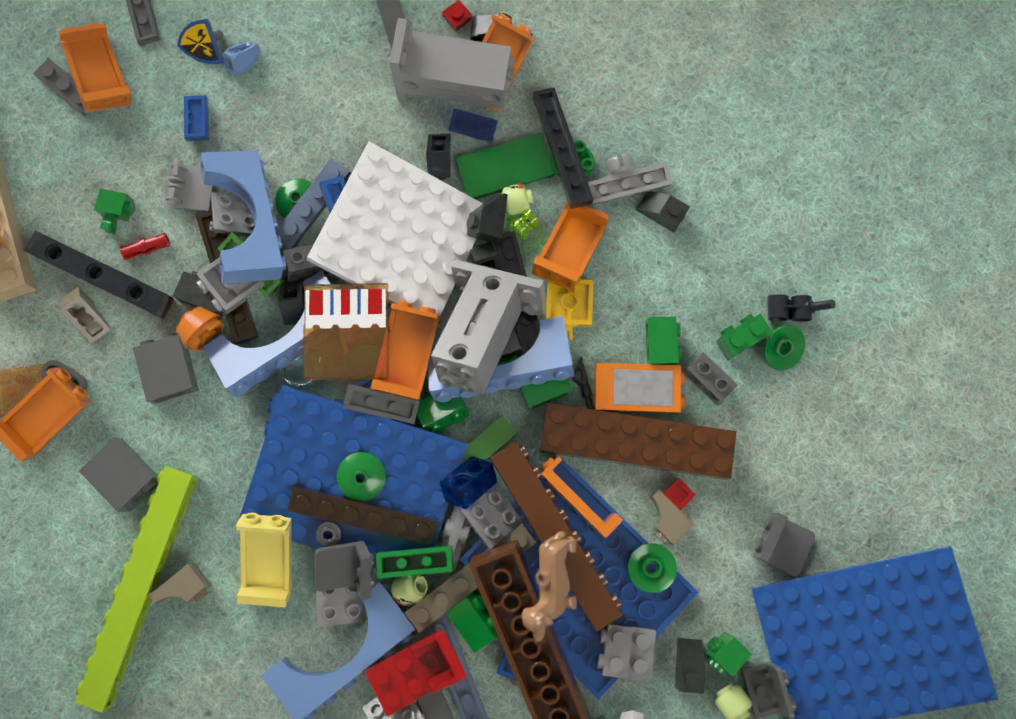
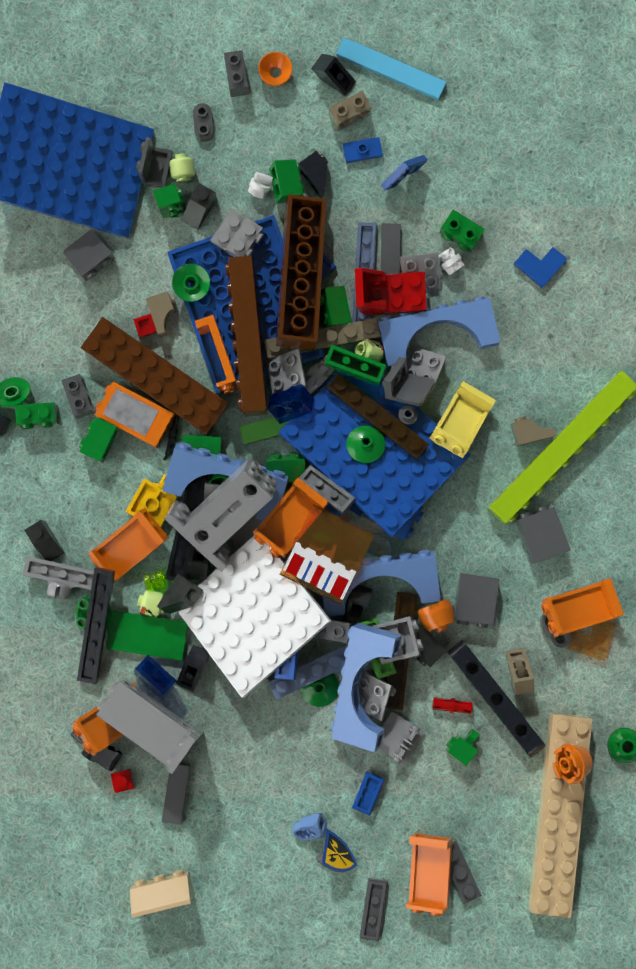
camera: 150 degrees left, 5 degrees up
(553, 585) = (265, 299): medium nougat animal -> none

